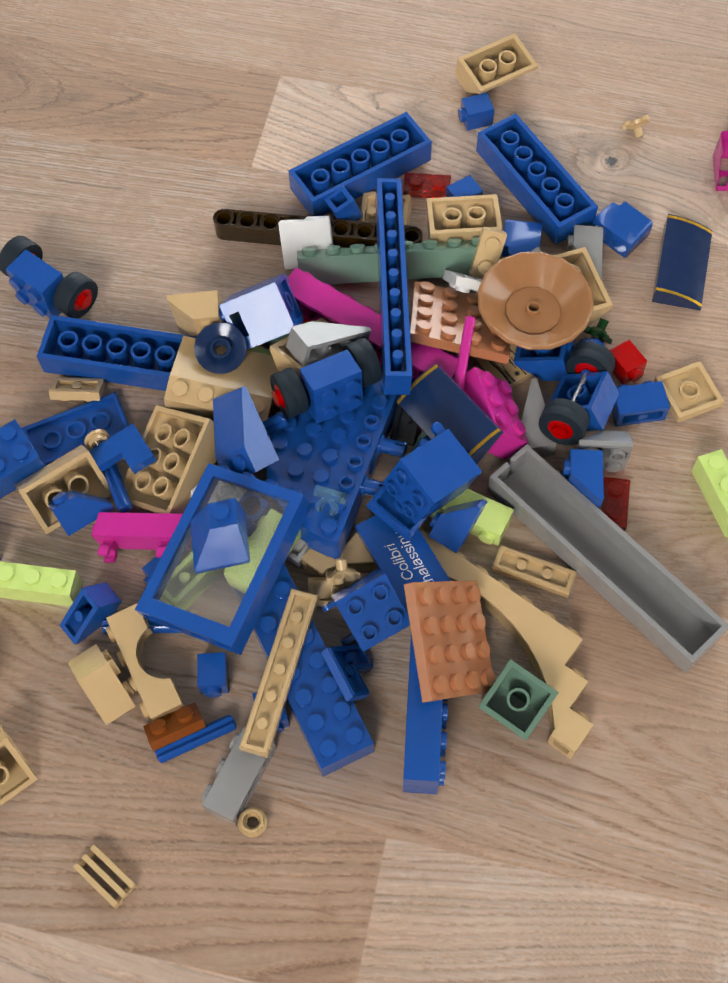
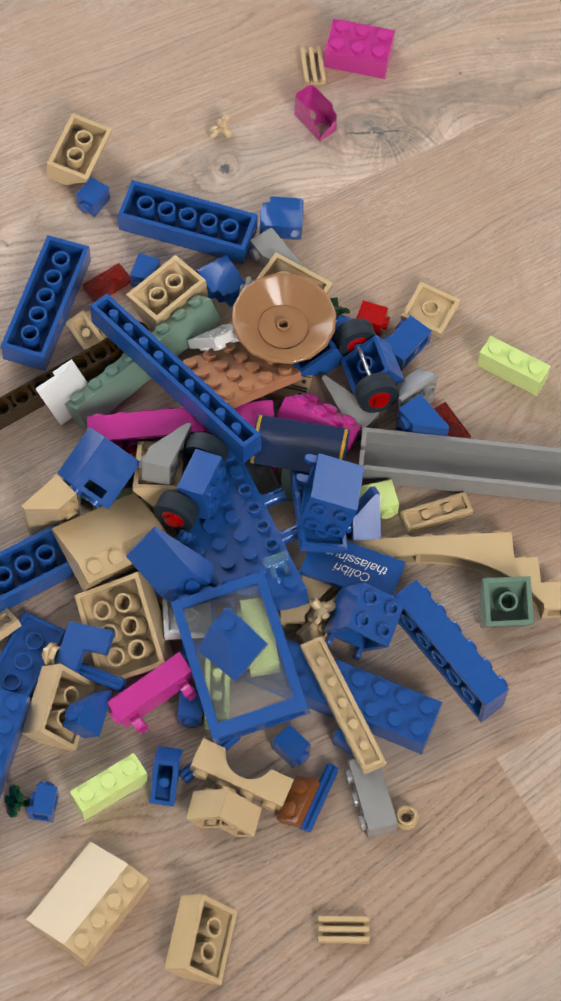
camera: 45 degrees left, 0 degrees up
(215, 336) = (103, 507): dark blue dish -> none
(342, 205) = (65, 344): blue brick -> none
(346, 665) = (377, 666): blue tile -> none
(449, 639) = (436, 594): nougat plate -> none
(464, 350) = (269, 390): dark pink bar -> none
(487, 251) = (212, 306): tan plate -> none
(682, 263) = (345, 215): dark blue slope -> none

